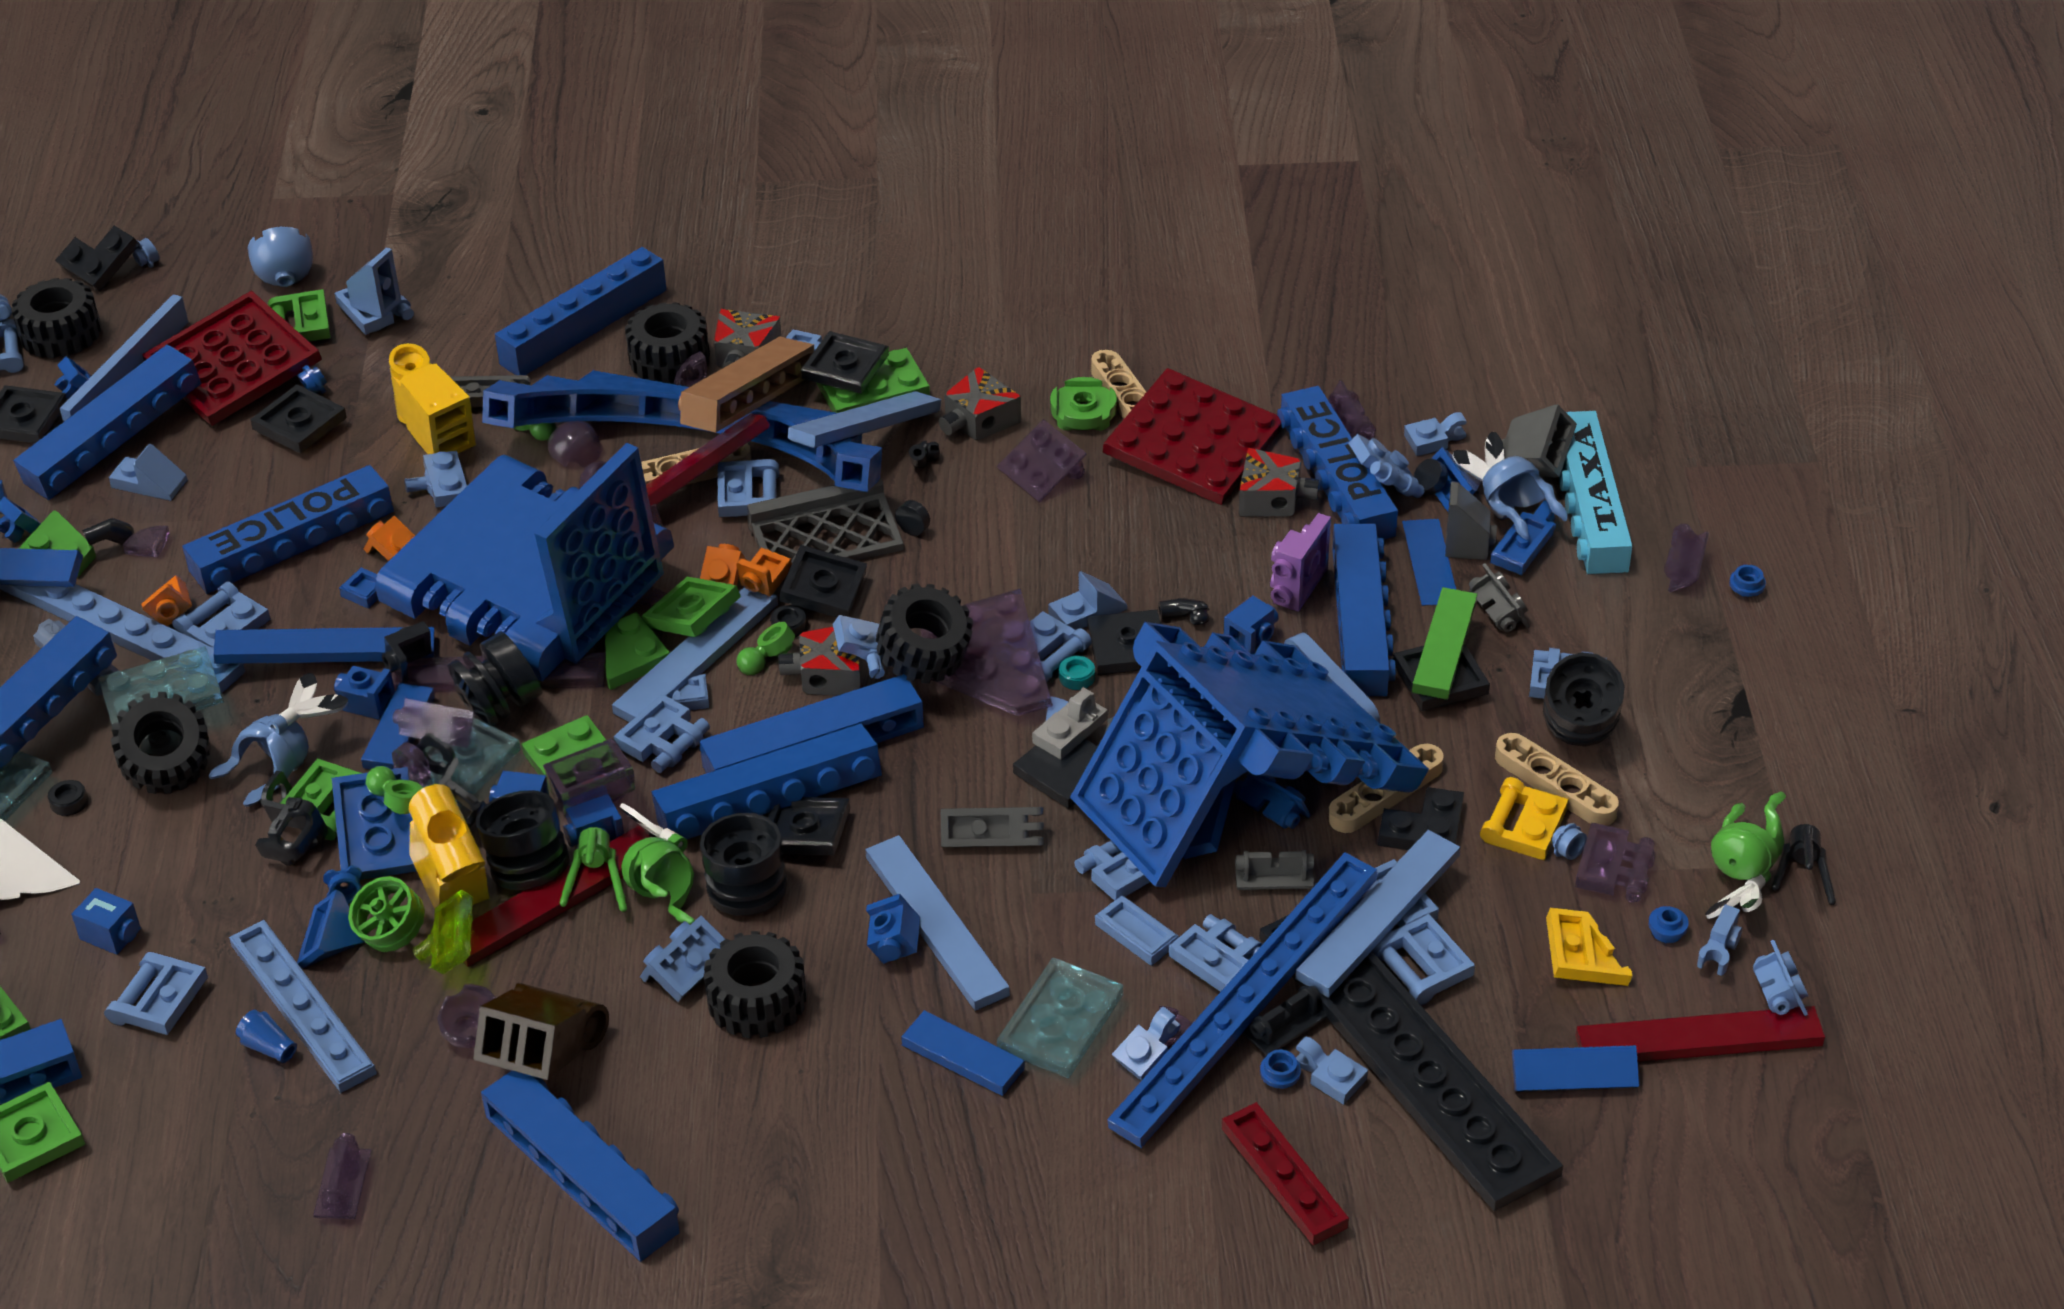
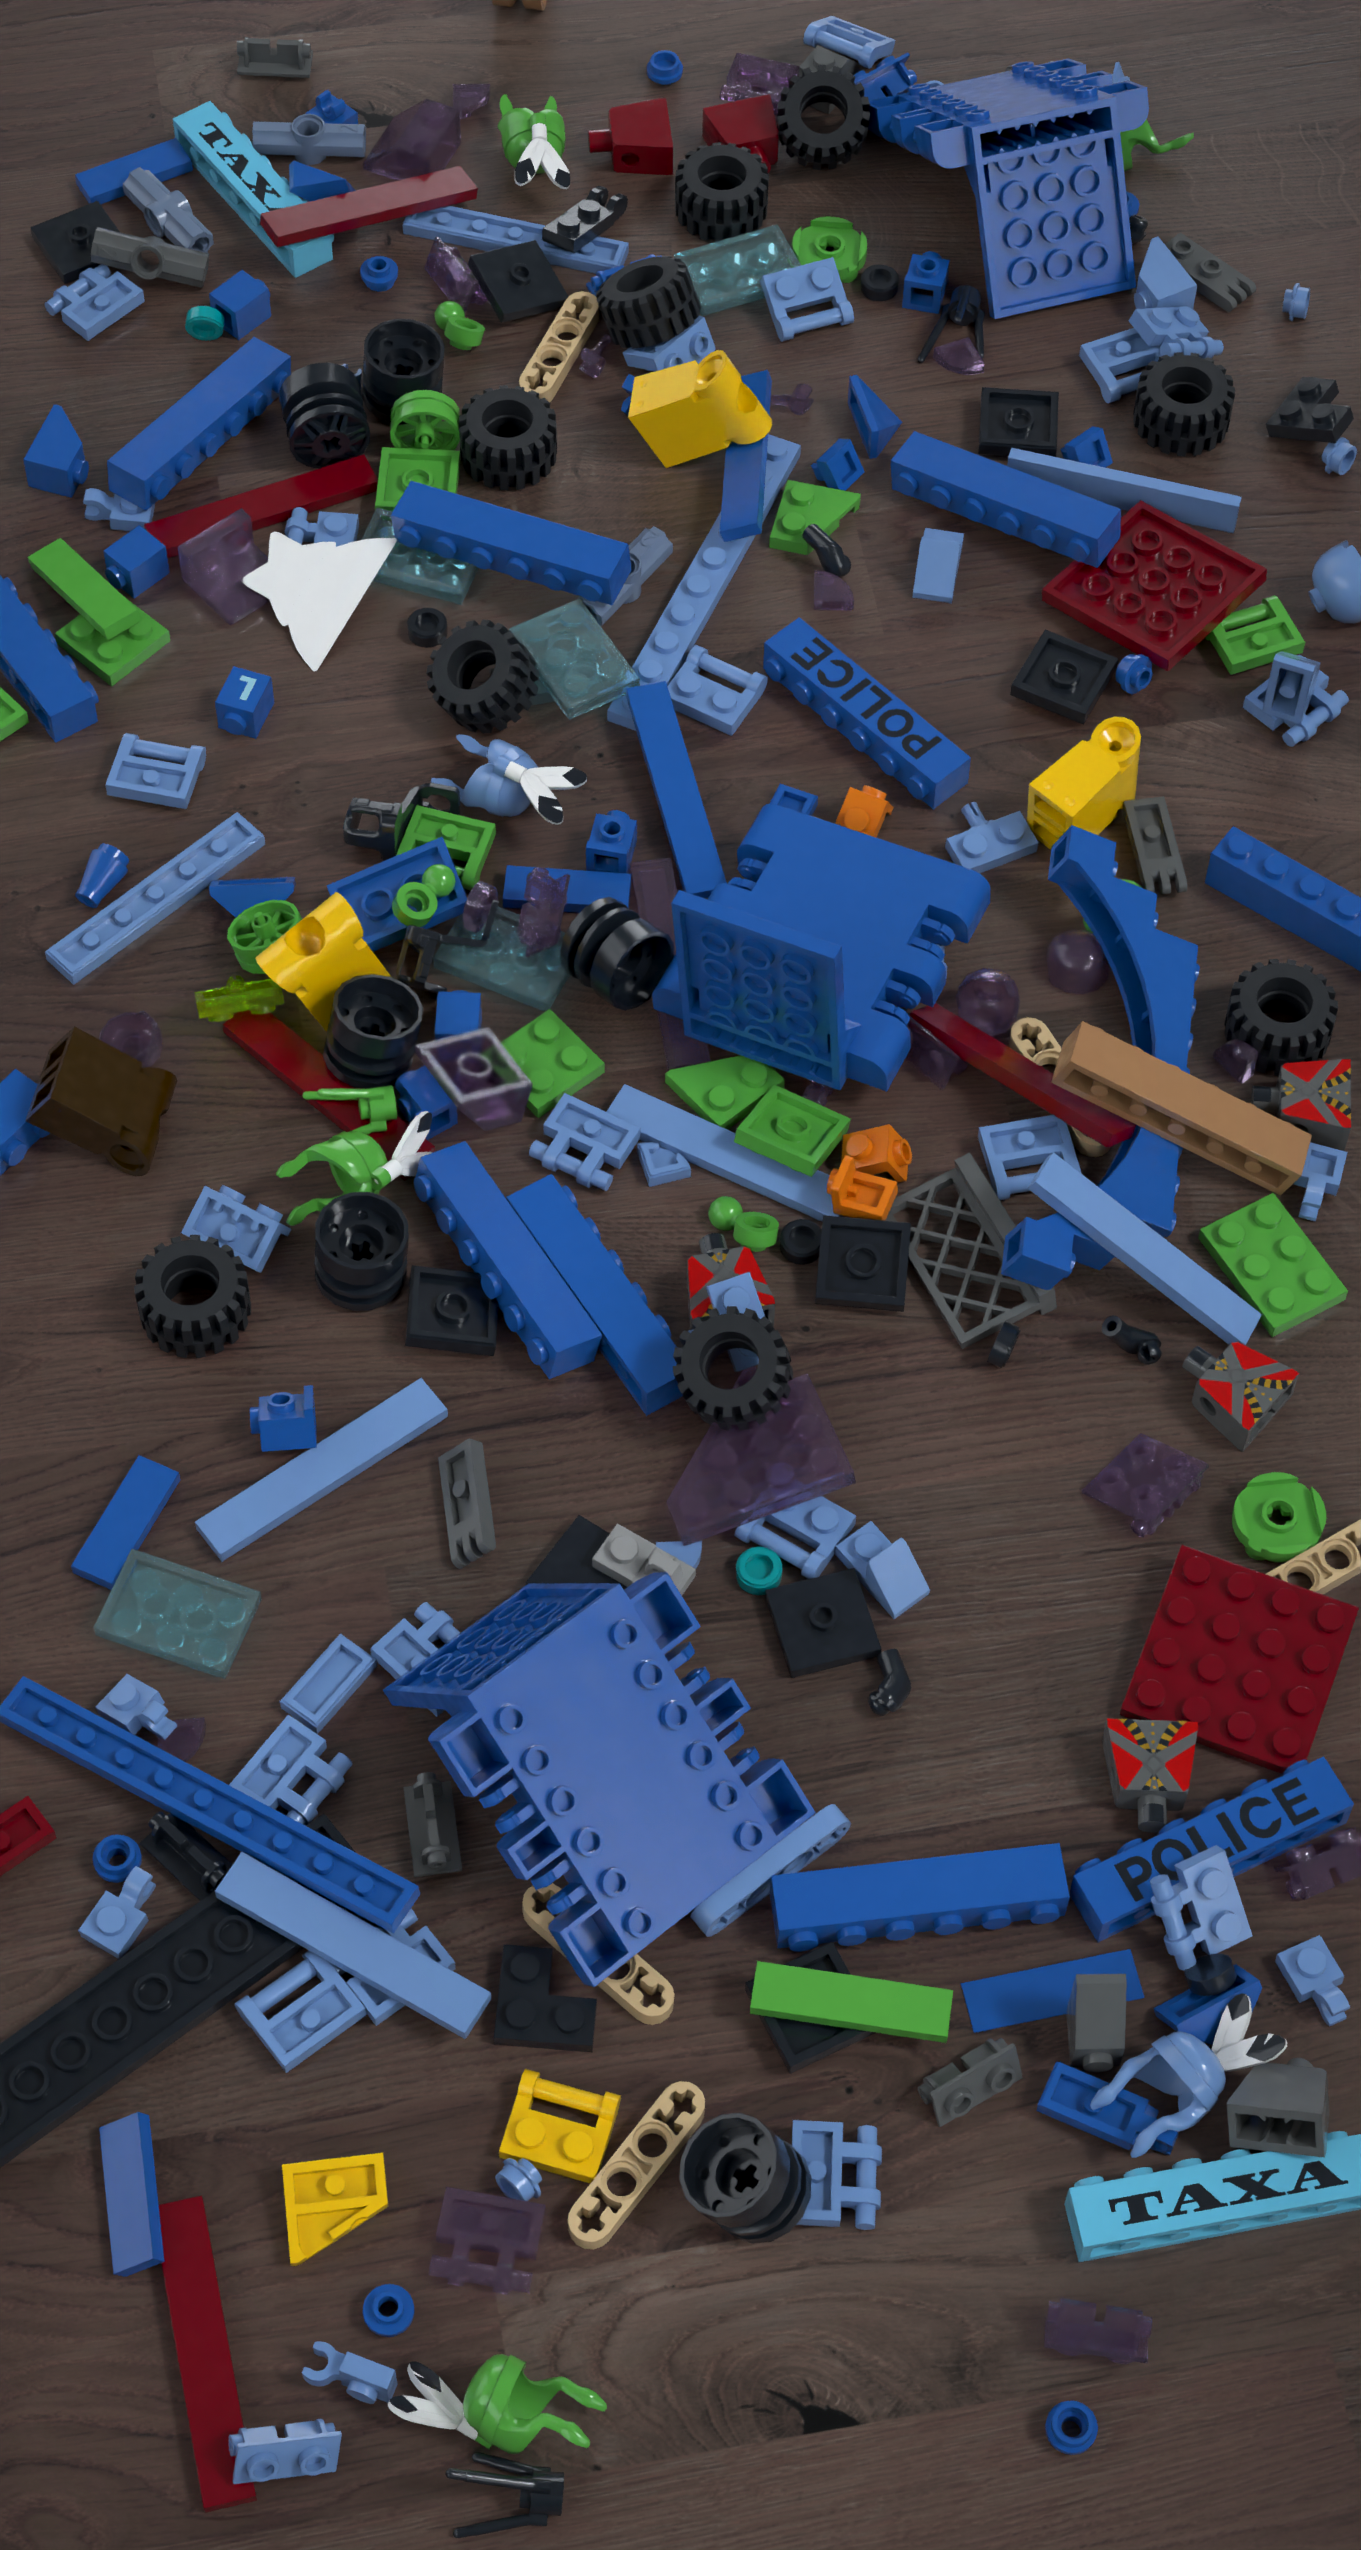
camera: 80 degrees right, 15 degrees up
(168, 601) = (721, 636): orange bracket -> none
(350, 876) = (311, 890): blue plate -> none
(406, 646) = (671, 861): black bracket -> none
(845, 362) = (1274, 1217): black plate -> none
(1251, 623) = (861, 1762): blue brick -> none
(1300, 563) = (966, 1810): medium lavender plate -> none

